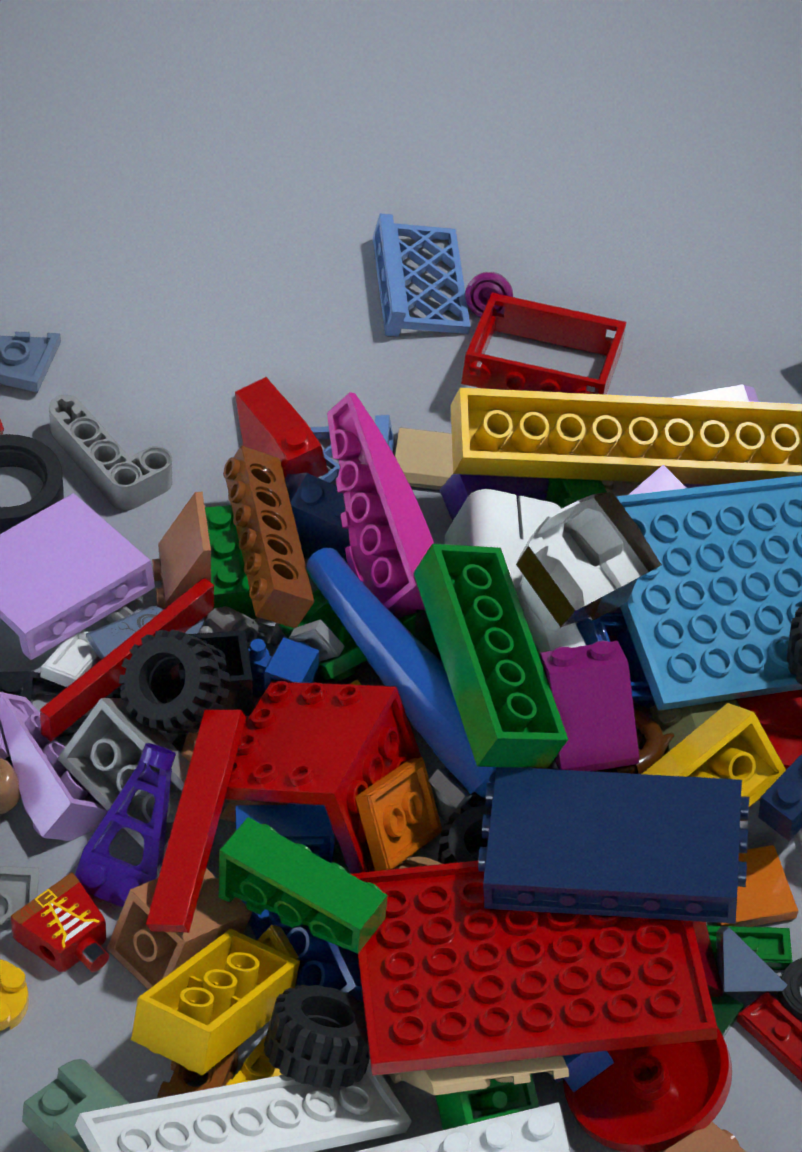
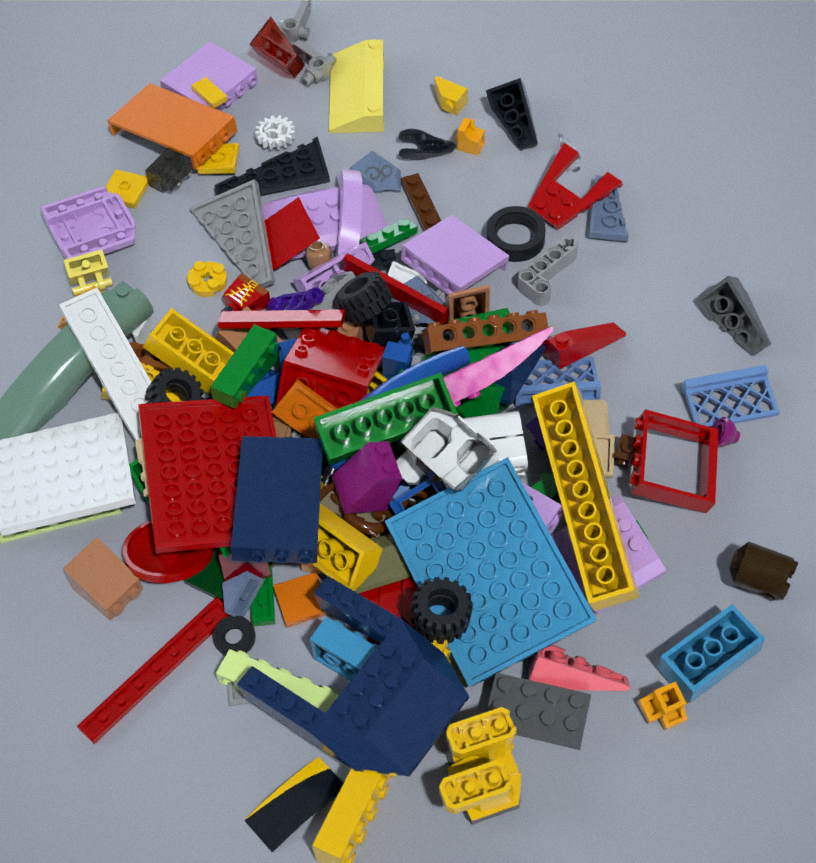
camera: 90 degrees right, 5 degrees up
(250, 239) = (733, 311): none -> dark grey wedge
(747, 292) = (762, 570): none -> dark brown cylinder

